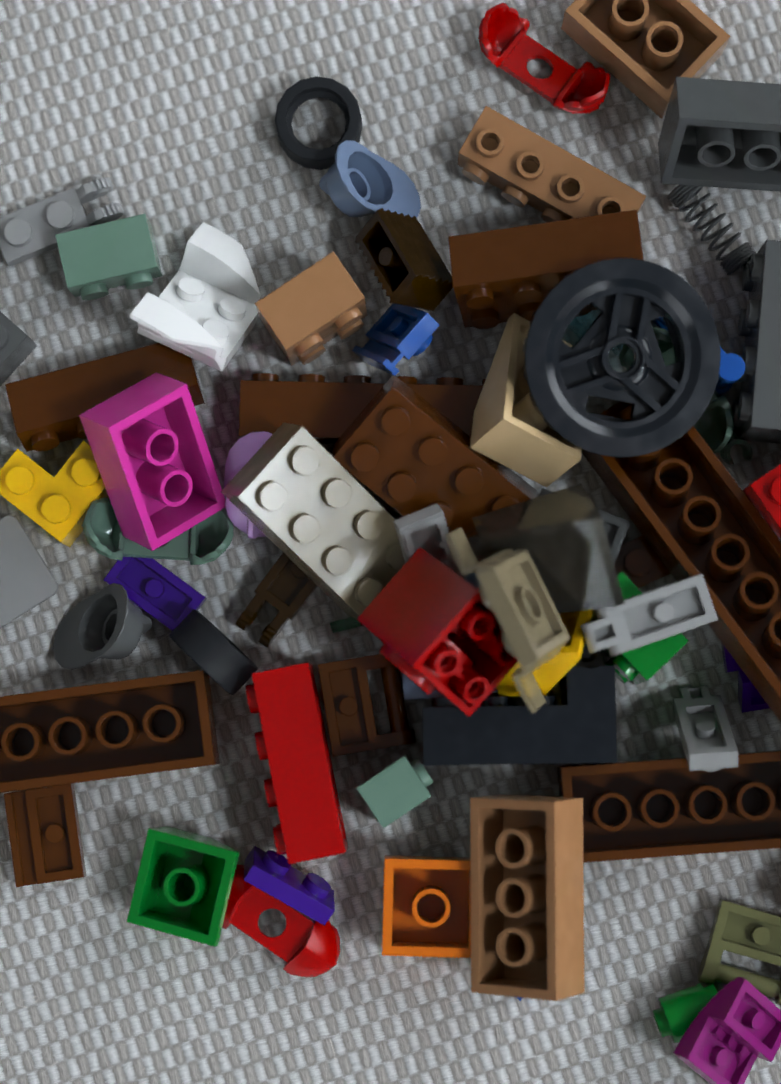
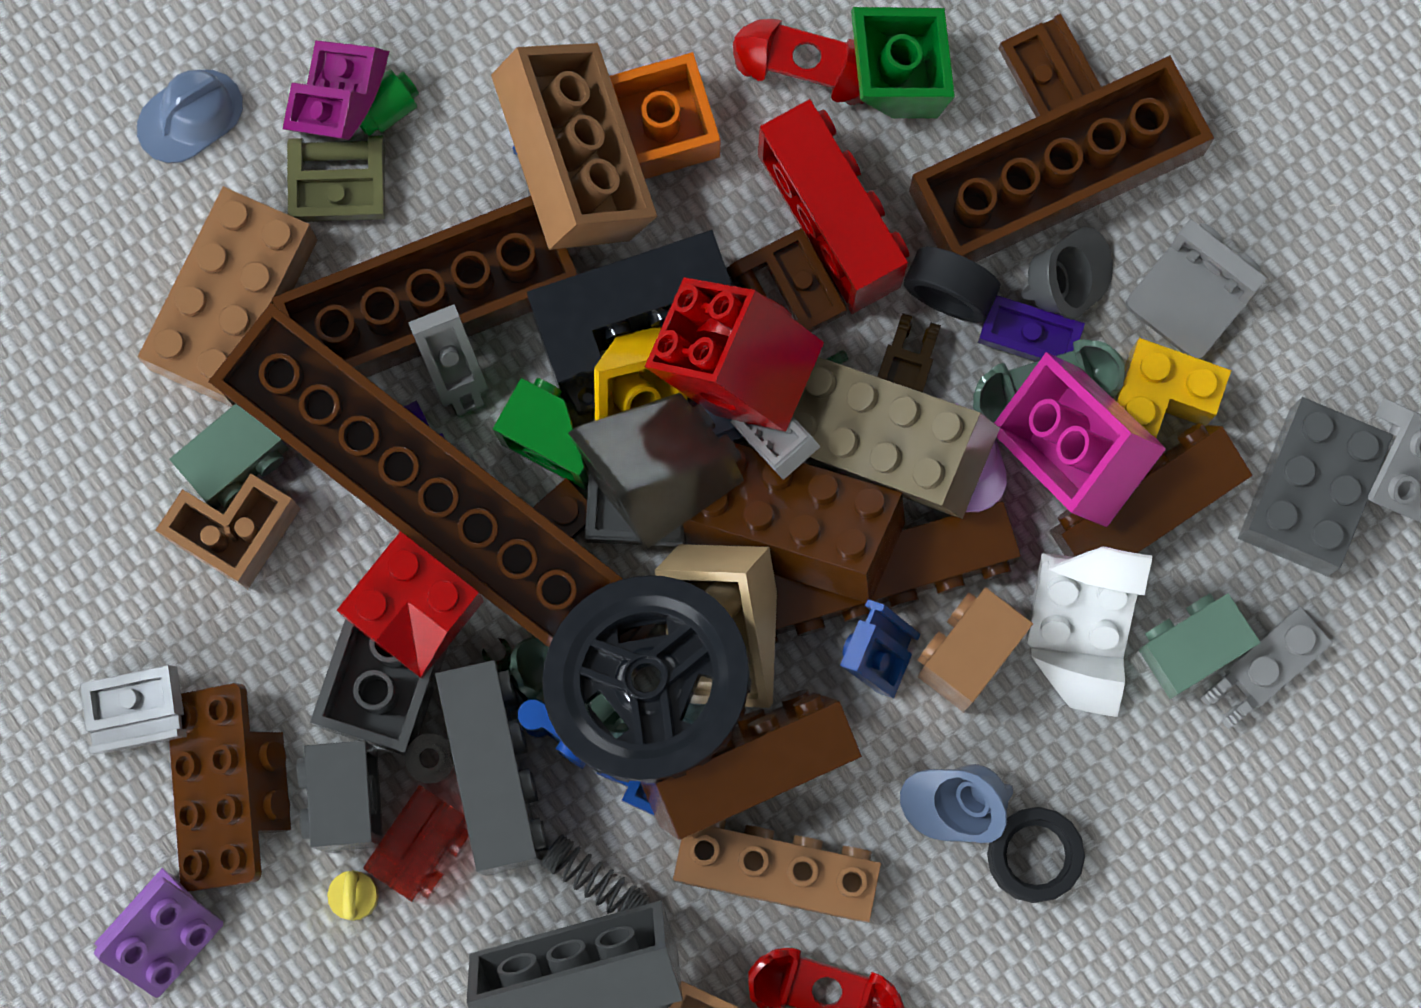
camera: 155 degrees right, 5 degrees down
(276, 877) = (782, 90): dark purple plate -> none
(396, 790) = (732, 208): sand green brick -> none
(404, 260) = (898, 729): dark brown brick -> none
(522, 606) = (676, 390): dark tan piece -> none
(651, 616) = (536, 433): light grey hinge -> none

